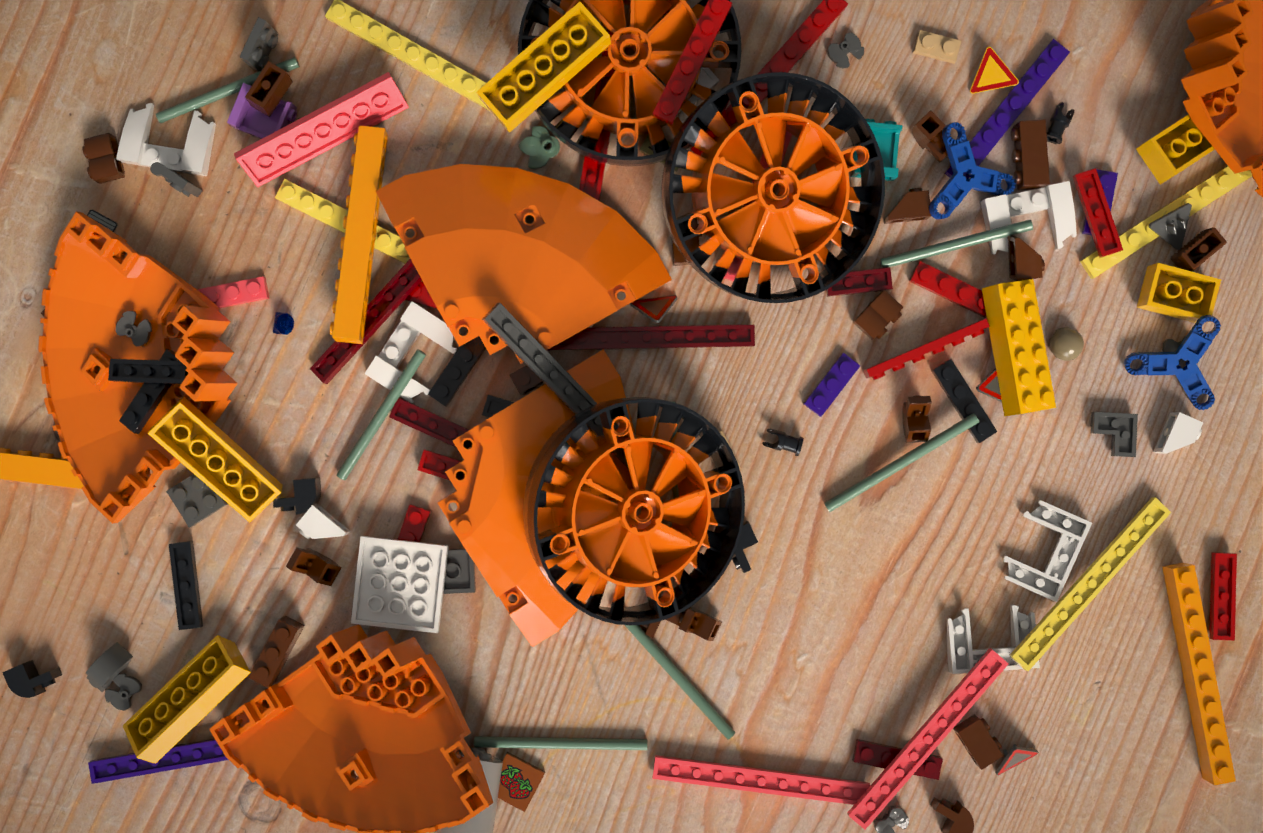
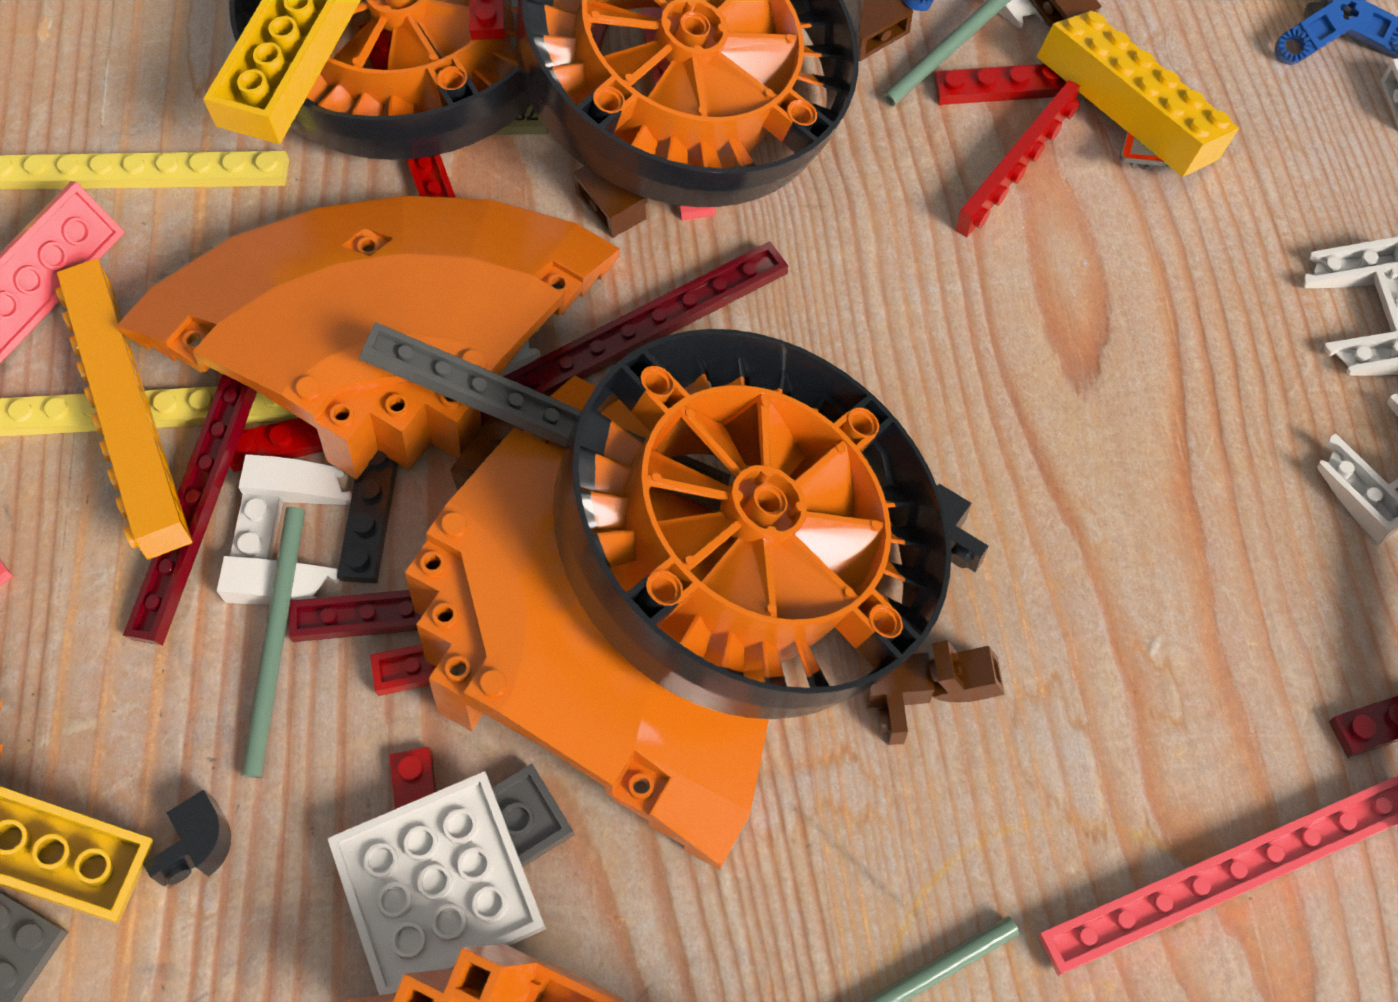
camera: 30 degrees left, 25 degrees down
(283, 323) = (49, 596): clear blue plate -> none
(315, 565) = (267, 942): reddish brown brick -> none
(320, 524) = (250, 868): white slope -> none
(536, 147) = (339, 185): sand green plate -> none
(654, 308) = (610, 295): piece -> none
(681, 680) = (978, 779): sand green piece -> none
(785, 442) = (917, 361): black piece -> none
(831, 385) = (927, 265): dark purple plate -> none
(862, 282) = (874, 130): dark red plate -> none
(878, 315) = (927, 152): reddish brown brick -> none
(901, 462) = (1091, 306): sand green piece -> none
(916, 419) = (1067, 240): reddish brown brick -> none
(963, 399) = (1116, 195): black plate -> none
(1066, 344) = (1193, 65): dark tan hair -> none
(1121, 427) = (1339, 120): dark grey plate -> none

